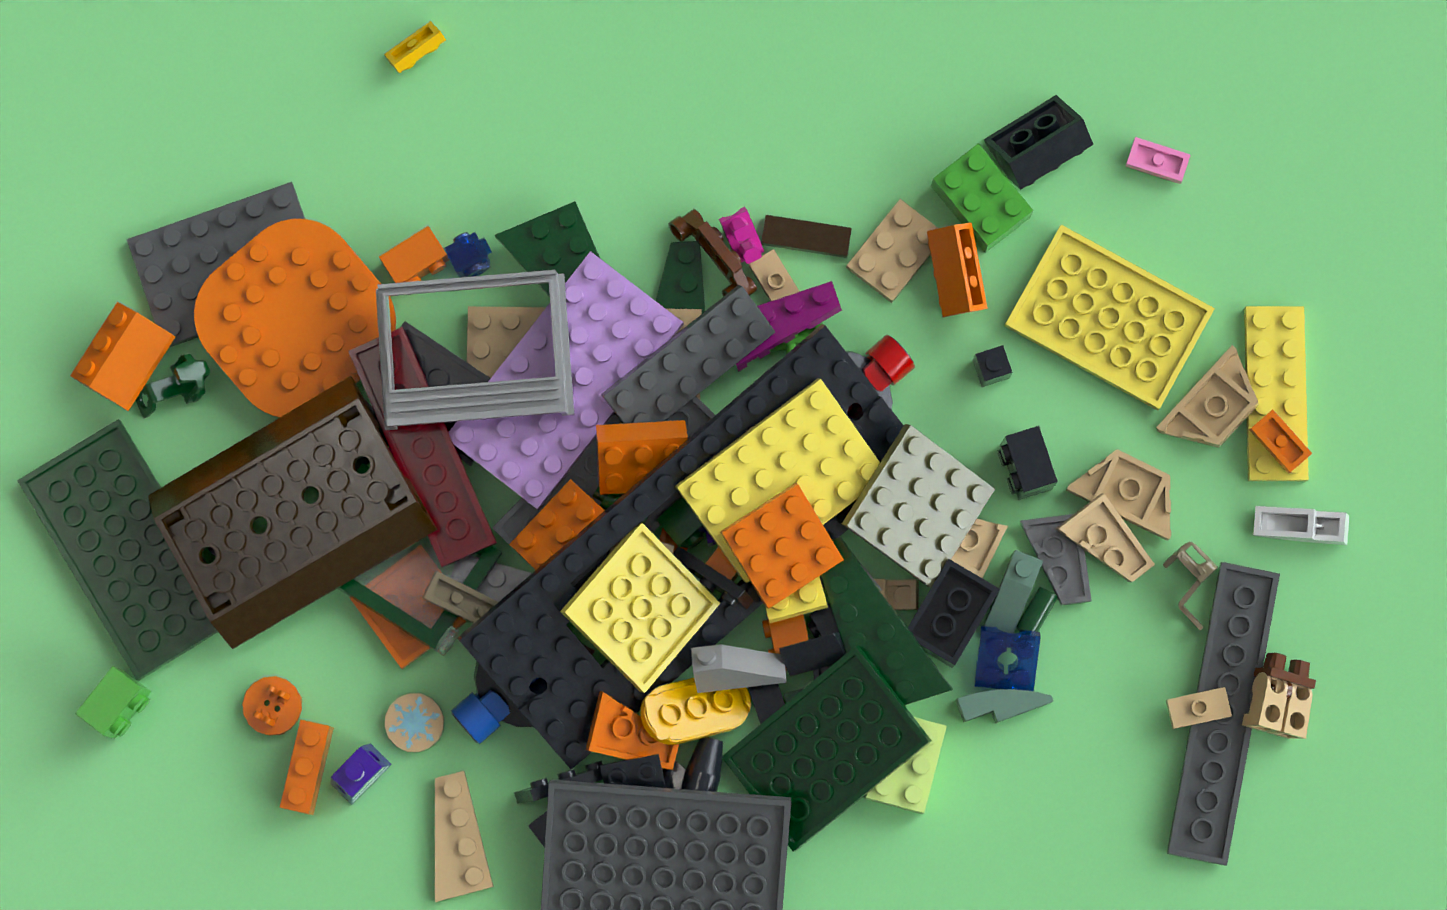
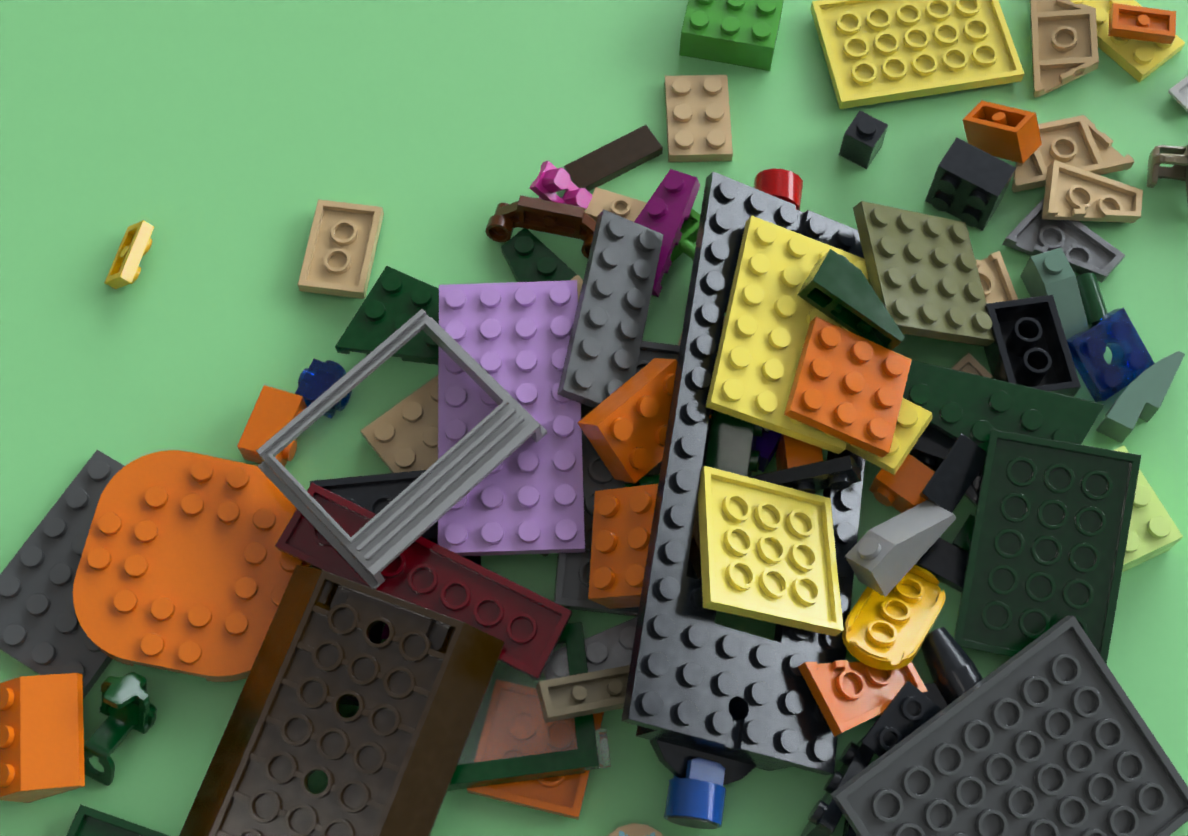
camera: 40 degrees left, 15 degrees down
(560, 156) = (341, 249): none -> tan plate
(832, 485) = (849, 299): none -> dark green slope
(957, 269) = (764, 86): orange brick -> none
(1090, 442) = (1003, 131): none -> orange brick

